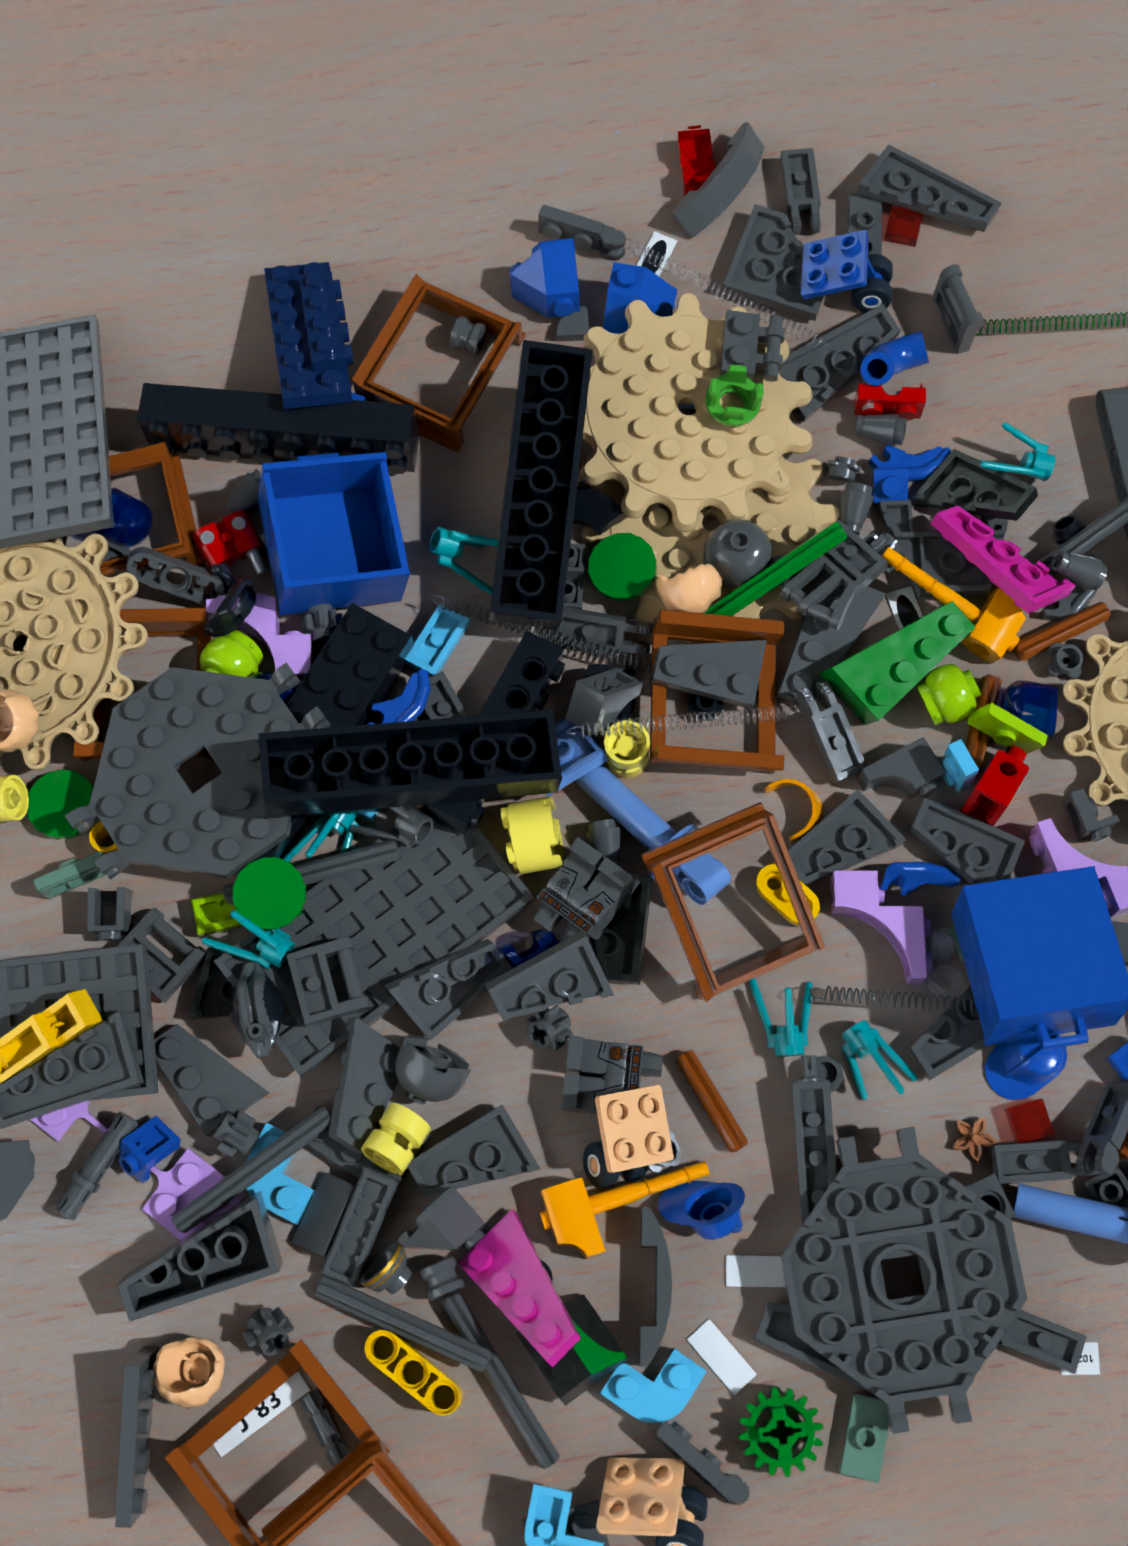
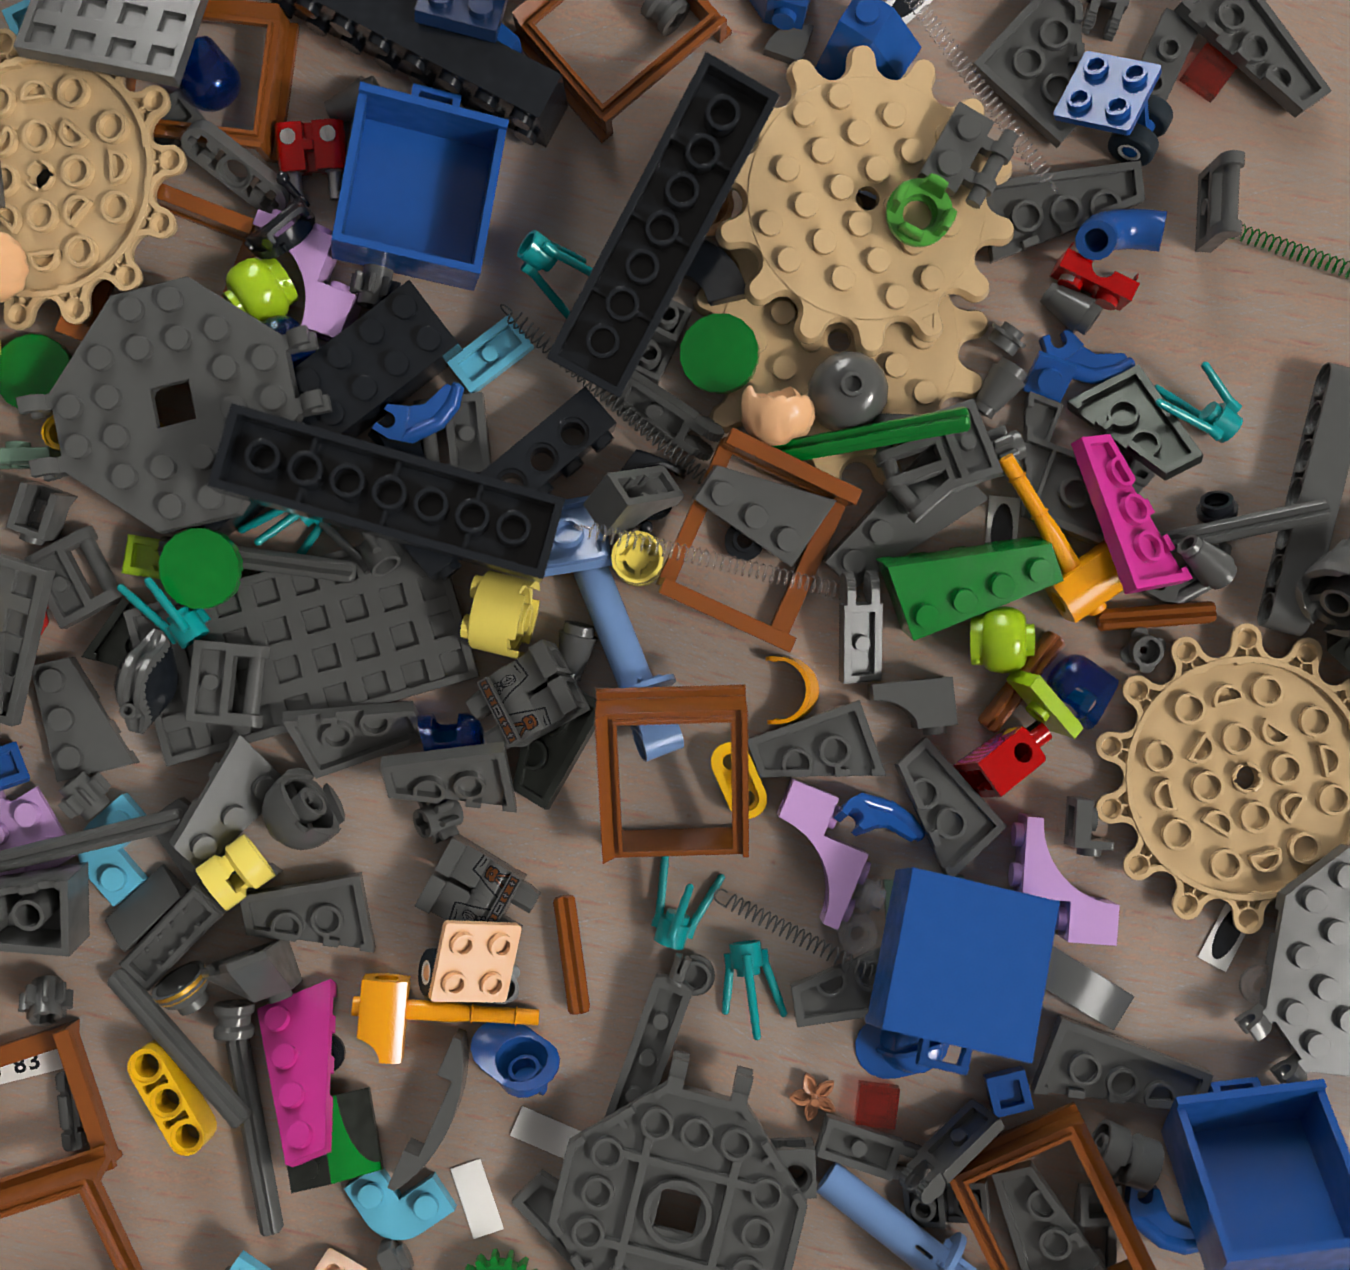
camera: 25 degrees right, 15 degrees up
(959, 767) = (973, 725): medium azure plate -> none

